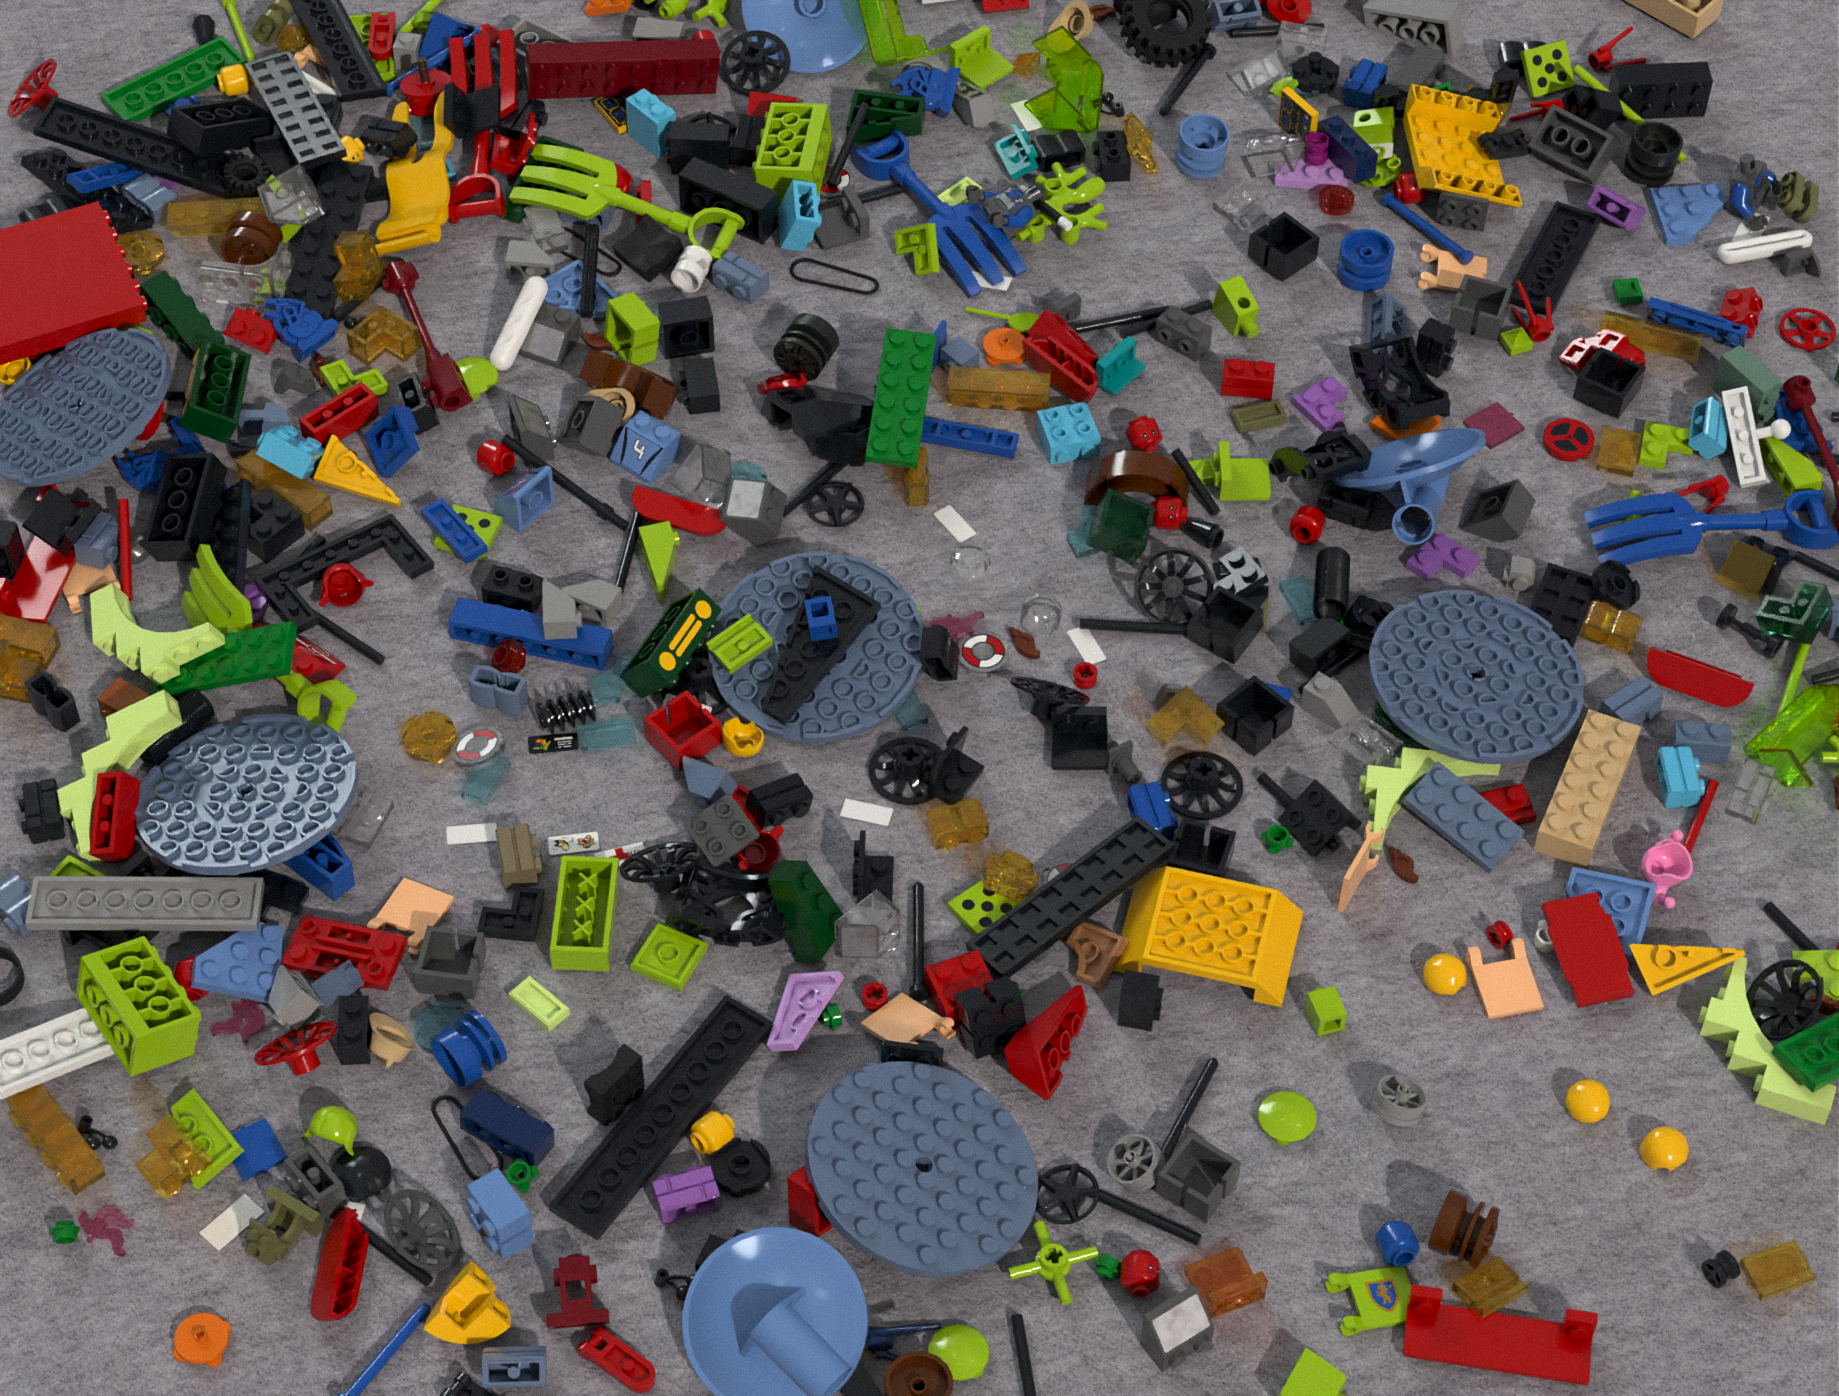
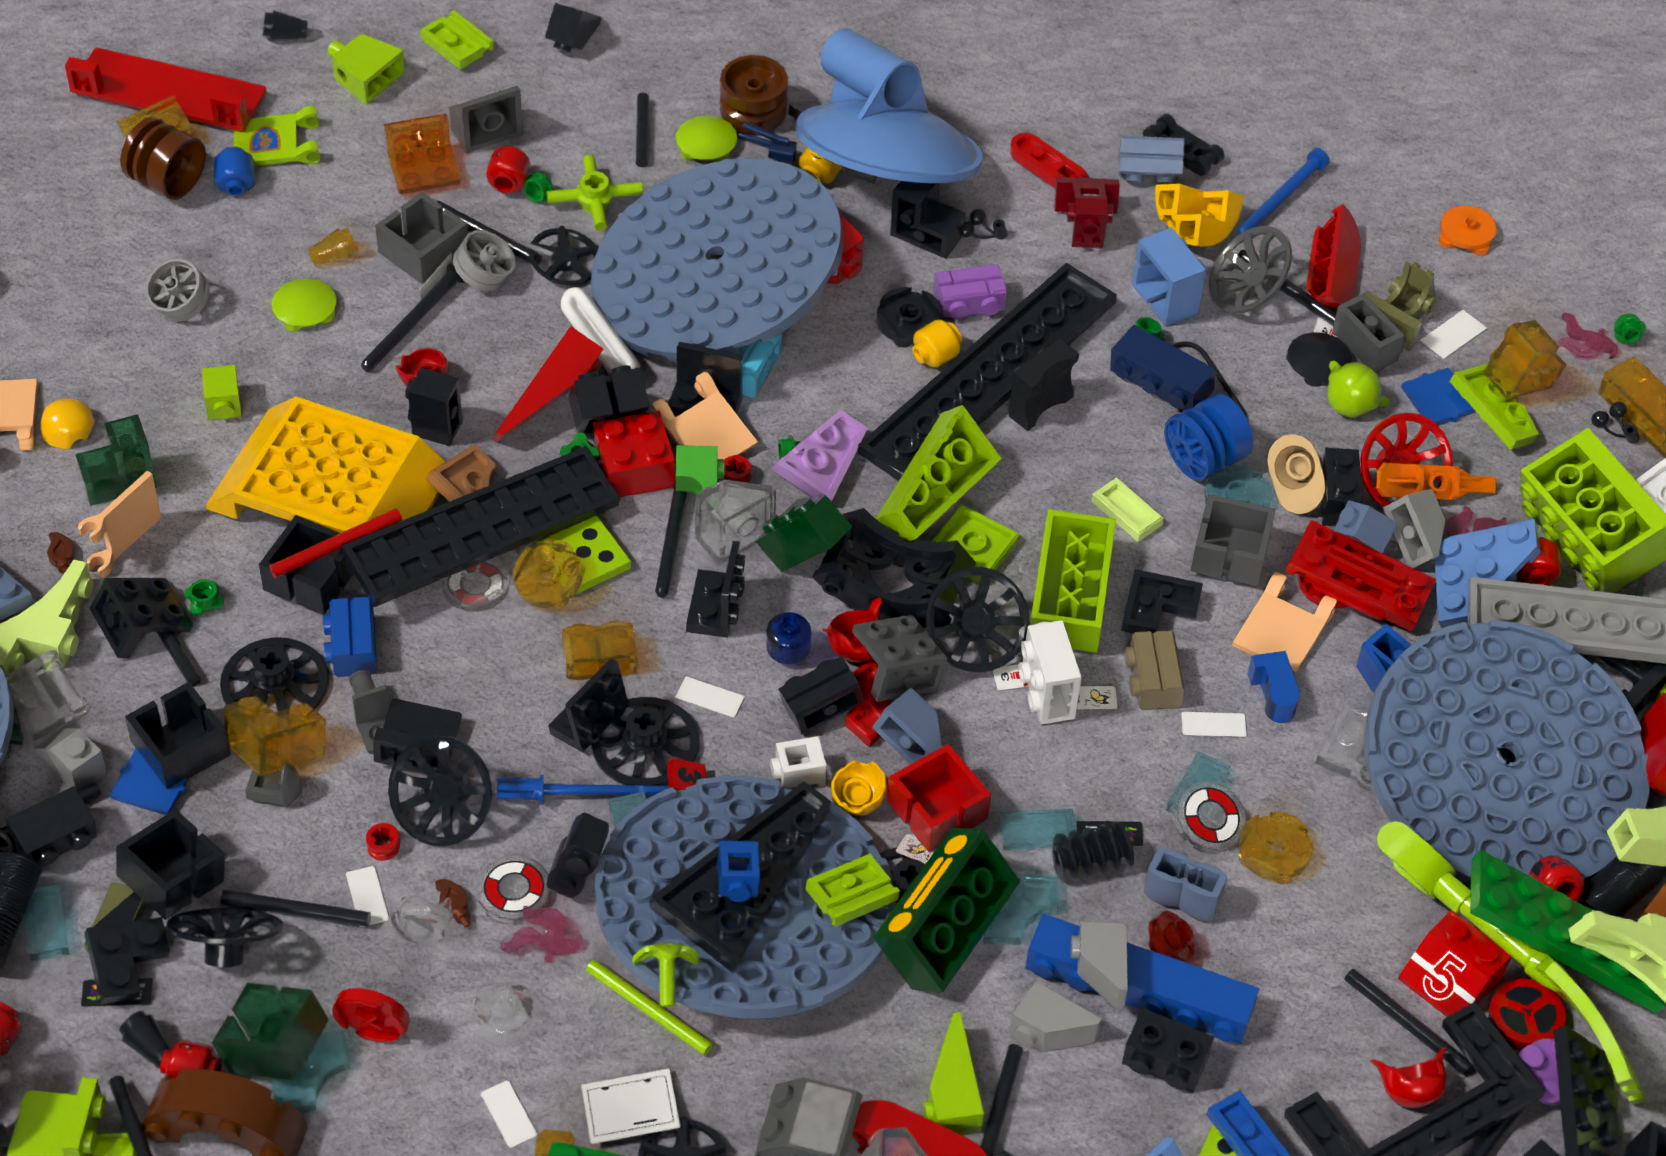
camera: 175 degrees left, 0 degrees up
(224, 703) = (1559, 875): none -> red head
(272, 1039) = (1404, 479): none -> orange piece
(418, 850) = (1278, 684): none -> blue leg
(600, 822) = (1050, 672): none -> white brick
(702, 985) = (939, 474): none -> lime wedge
(789, 752) = (799, 762): none -> white brick
(810, 843) = (788, 638): none -> clear blue head
(860, 554) = (667, 954): none -> lime plant
(873, 738) = (684, 773): none -> red tile
(874, 529) = (630, 1106): none -> white sticker
(903, 965) = (697, 467): none -> bright green brick
(983, 720) = (535, 789): none -> blue piece
(1027, 1121) = (592, 323): none -> white piece
(1057, 545) = (371, 1013): none -> red tile
(1161, 1049) = (421, 358): none -> red hair
(1180, 849) = (334, 543): none -> red piece
(1276, 1174) = (333, 247): none -> clear yellow cone
(1383, 925) = (115, 467): none -> clear green brick

